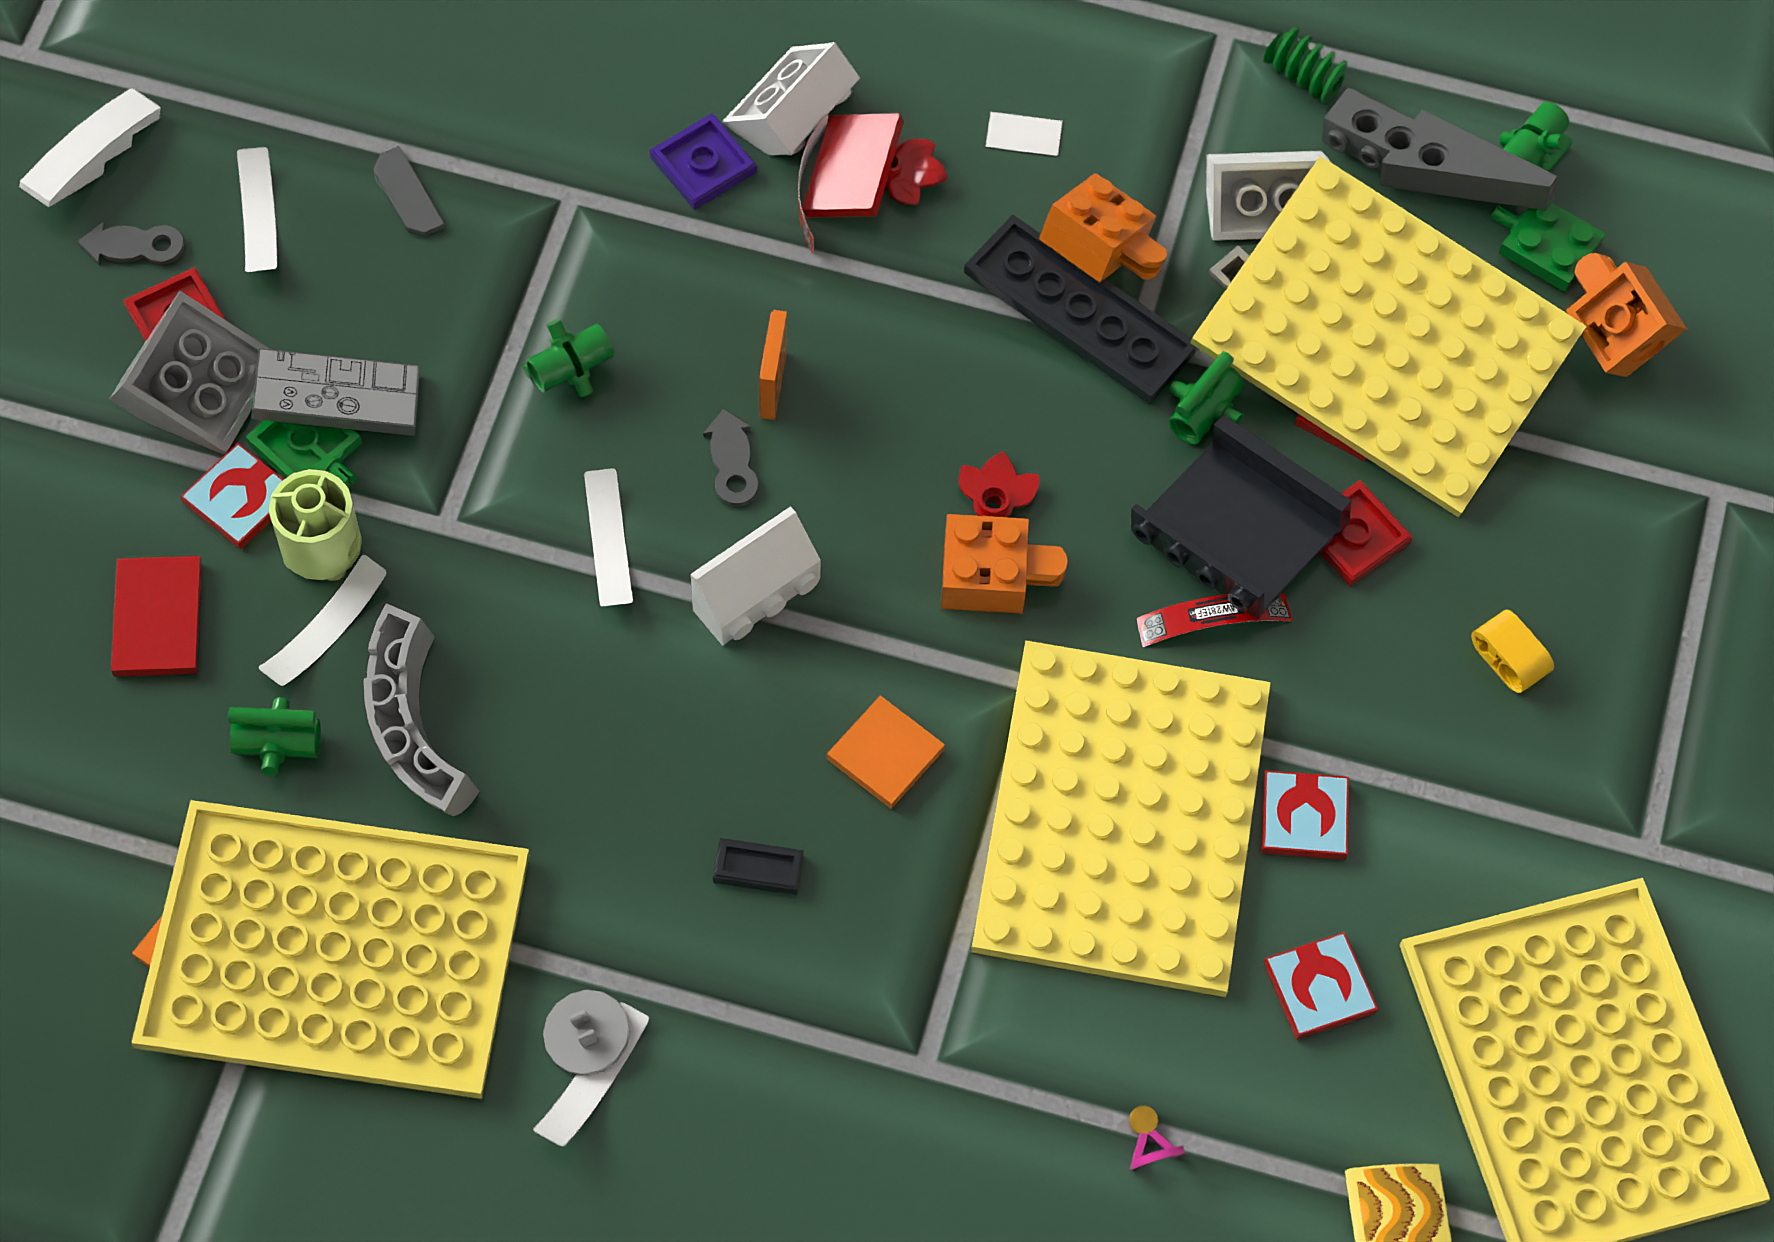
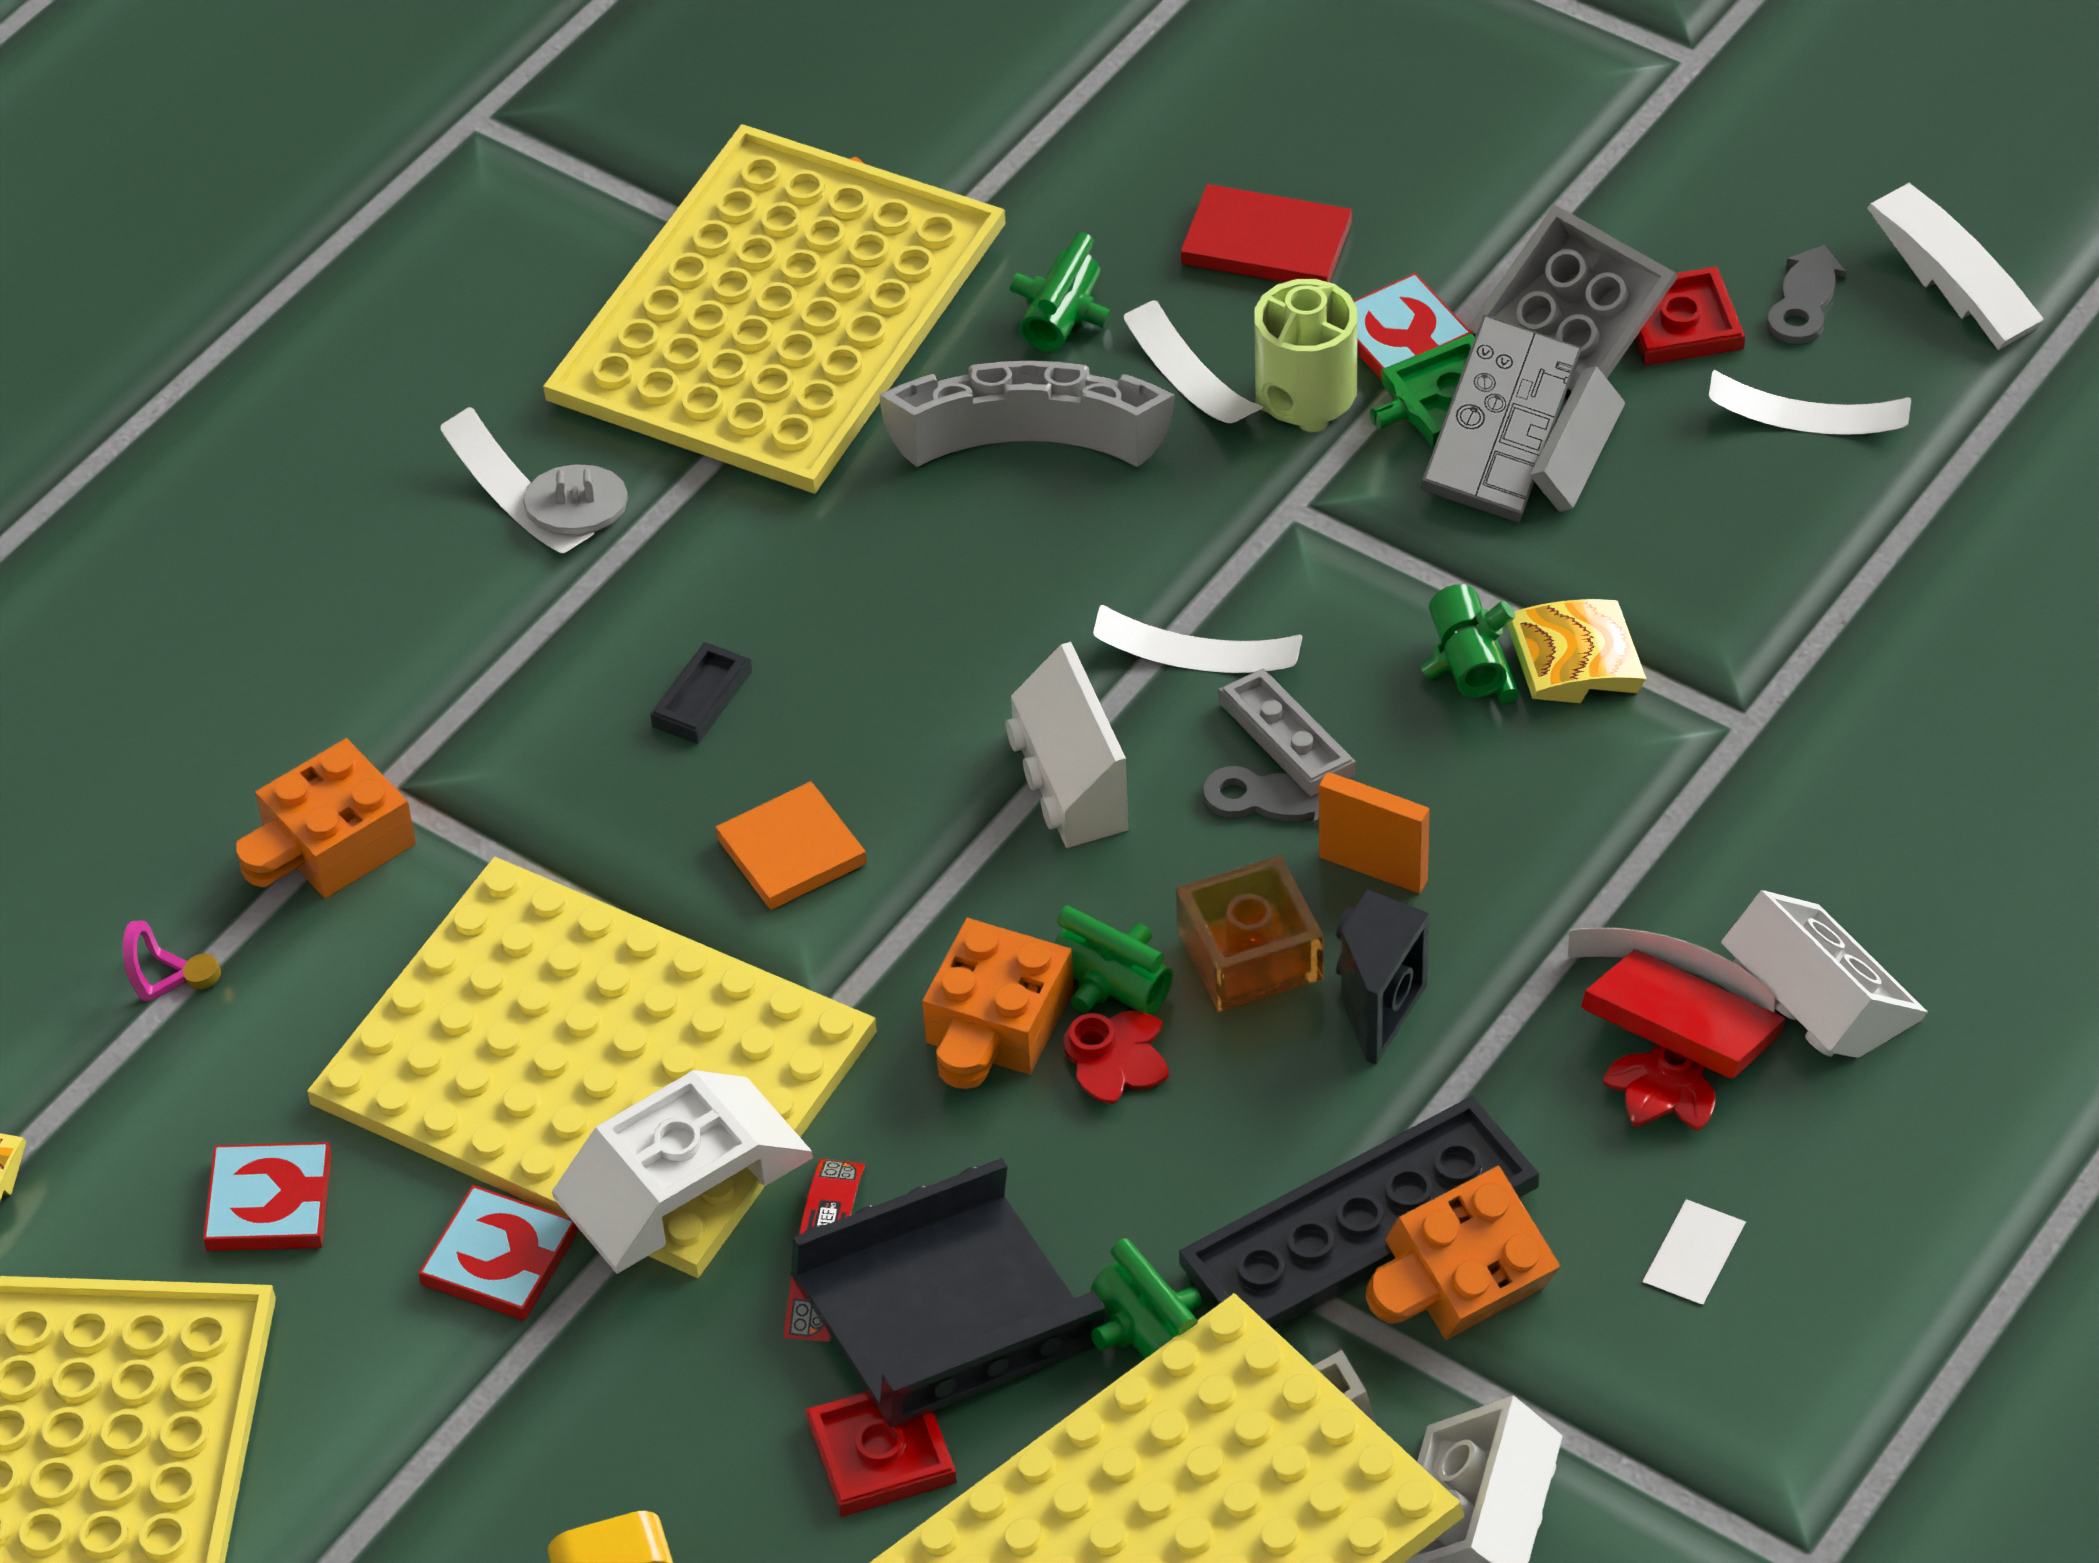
camera: 115 degrees right, 15 degrees down
(337, 345) = (1577, 439): none -> light grey tile
(407, 193) = (1803, 559): dark grey piece -> none
(541, 296) = (1575, 649): none -> slope
(676, 461) = (1285, 730): none -> light grey tile
(703, 161) = (1754, 856): dark purple tile -> none
(882, 421) = (1249, 933): none -> clear orange brick
(897, 330) = (1381, 968): none -> black slope
(930, 503) = (1113, 964): none -> green pin
(989, 1072) = (327, 821): none -> orange brick
(1225, 692) = (669, 1154): none -> white slope

